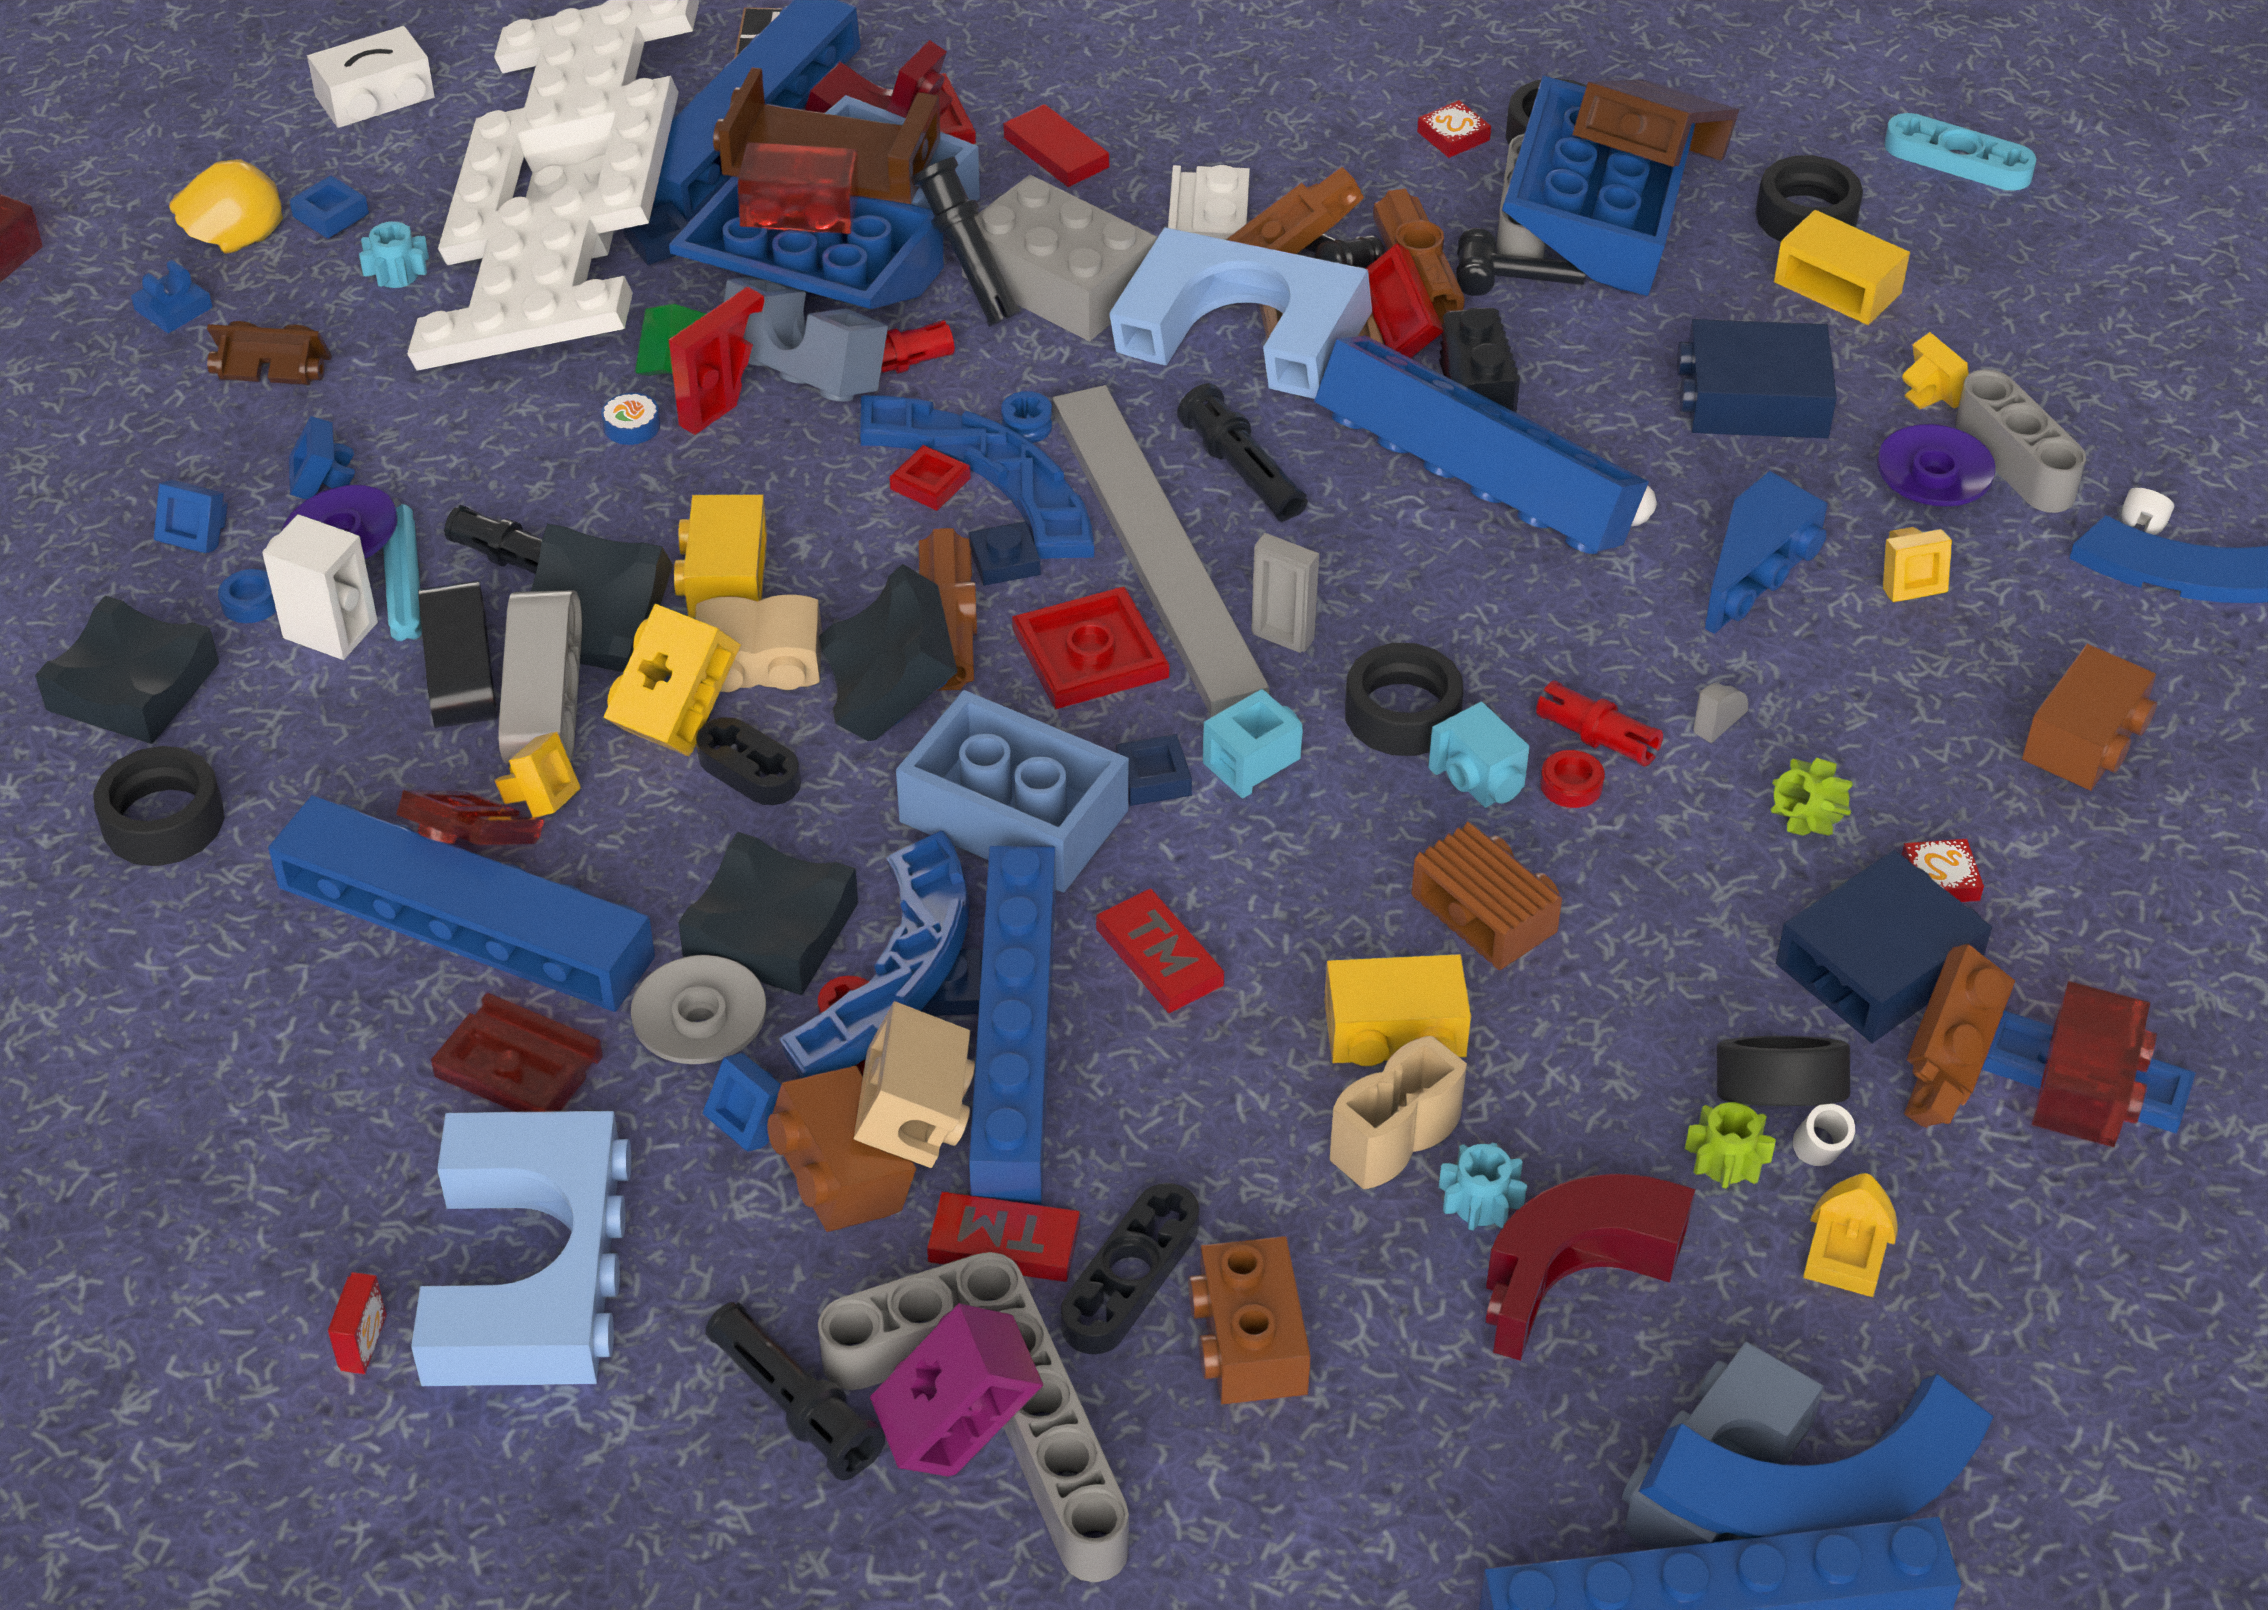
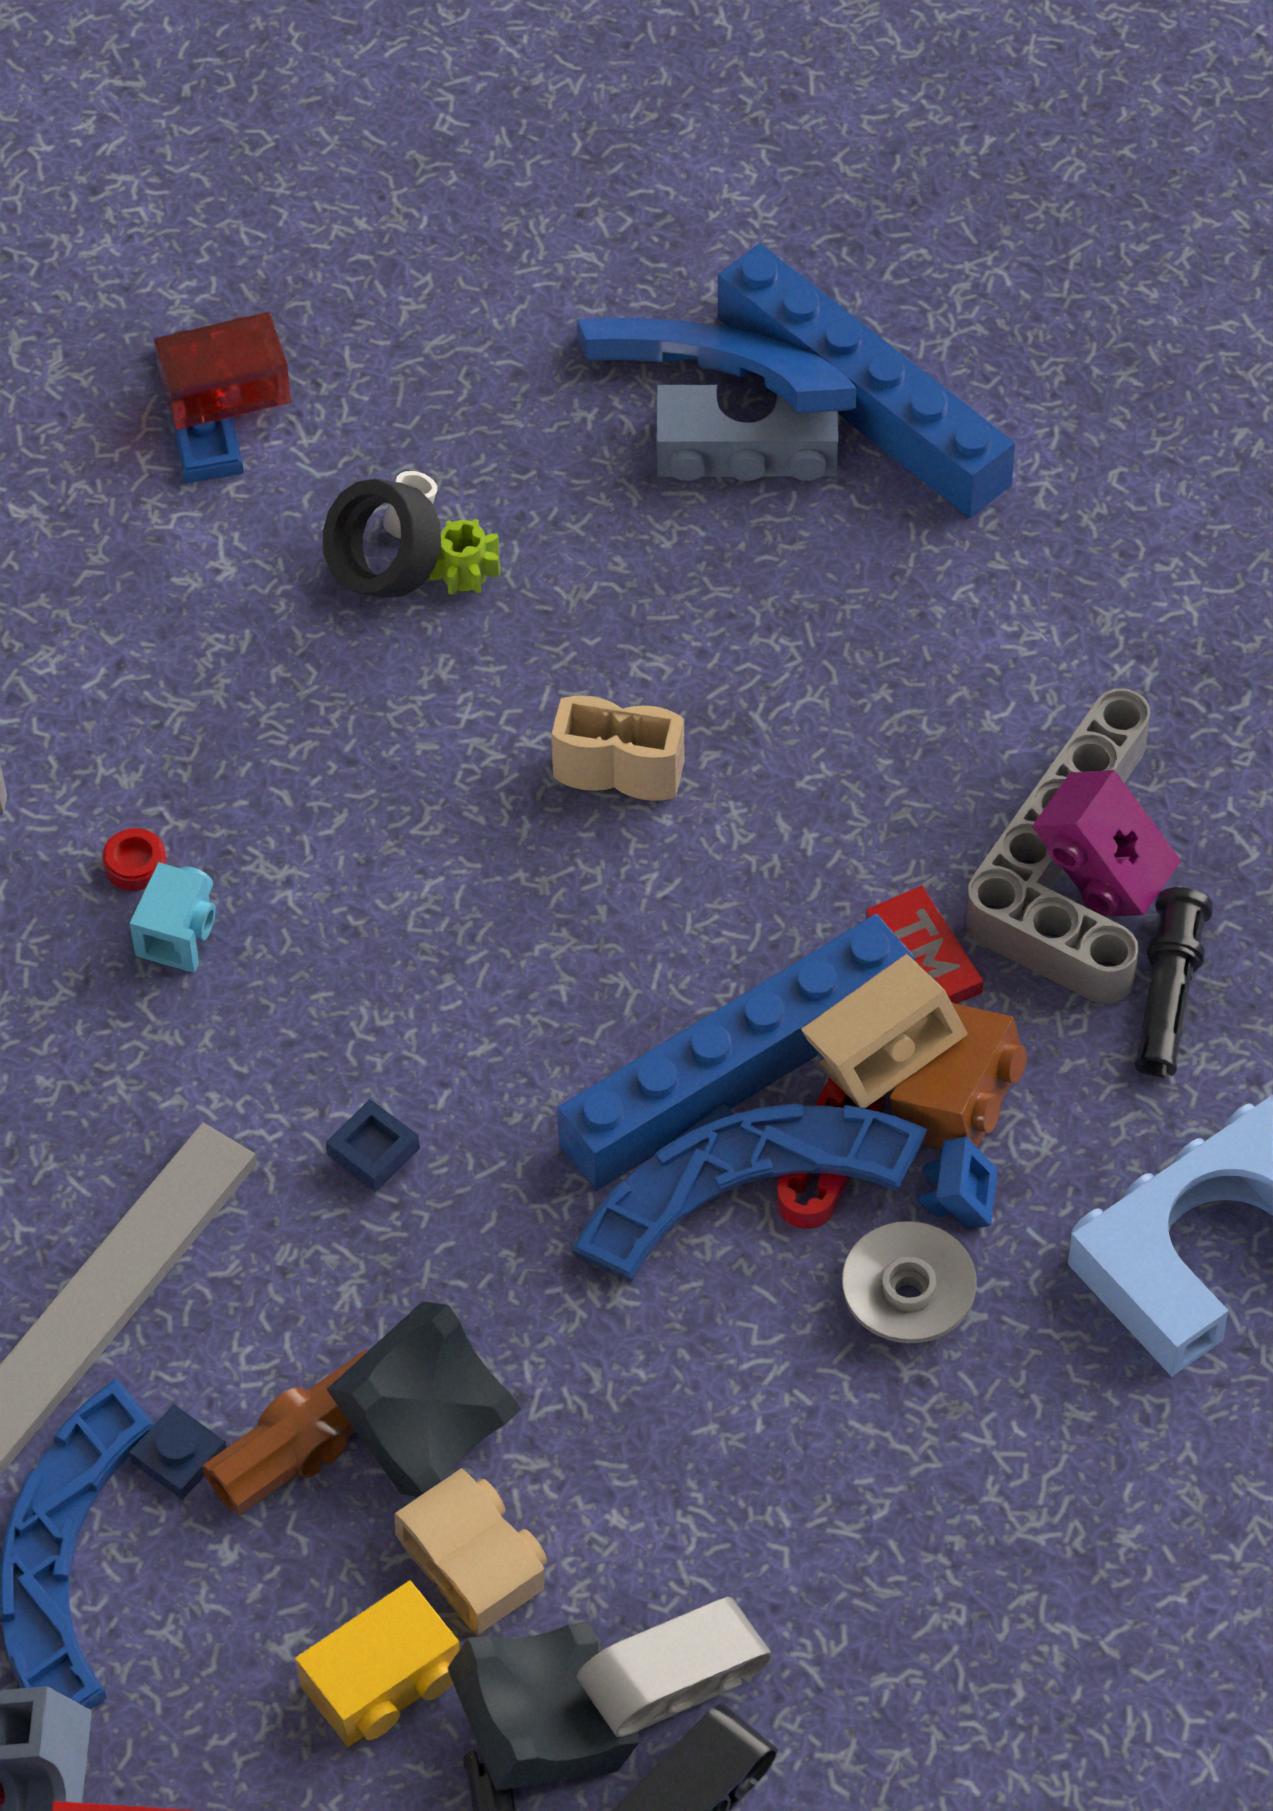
camera: 125 degrees left, 10 degrees up
(463, 902) = (955, 1551): blue brick -> none
(467, 816) = (876, 1591): clear red plate -> none
(516, 1057) = (1063, 1382): clear red plate -> none
(540, 776) = (781, 1585): yellow tile -> none
(674, 710) = (594, 1549): yellow brick -> none
(742, 767) = (592, 1465): black beam -> none
(770, 913) = (772, 1303): black brick -> none
(930, 477) = (116, 1591): red tile -> none
(1012, 782) = (500, 1205): medium blue brick -> none
(1090, 647) = (249, 1302): red tile -> none
(1133, 1240) = (897, 835): black beam -> none
(1160, 950) = (562, 1027): red tile -> none
(1251, 741) = (287, 1083): medium azure brick -> none
(1252, 1320) = (870, 743): dark orange brick -> none
(1284, 593) = (104, 1140): light grey tile -> none
(1391, 1001) = (505, 819): yellow piece -> none
(1401, 664) = (144, 1057): black tyre -> none
(1482, 1185) = (630, 675): medium azure gear -> none
(1486, 895) = (330, 829): dark orange brick -> none
(1578, 1226) = (638, 609): dark red arch -> none
(1599, 723) = (59, 865): red pin -> none
(1811, 797) = (48, 671): lime gear -> none
(1851, 1235) = (488, 462): yellow tile -> none
(1878, 944) = (178, 557): dark blue brick -> none
(1949, 865) = (51, 572): tile -> none
(1956, 1034) = (254, 469): dark orange hinge -> none

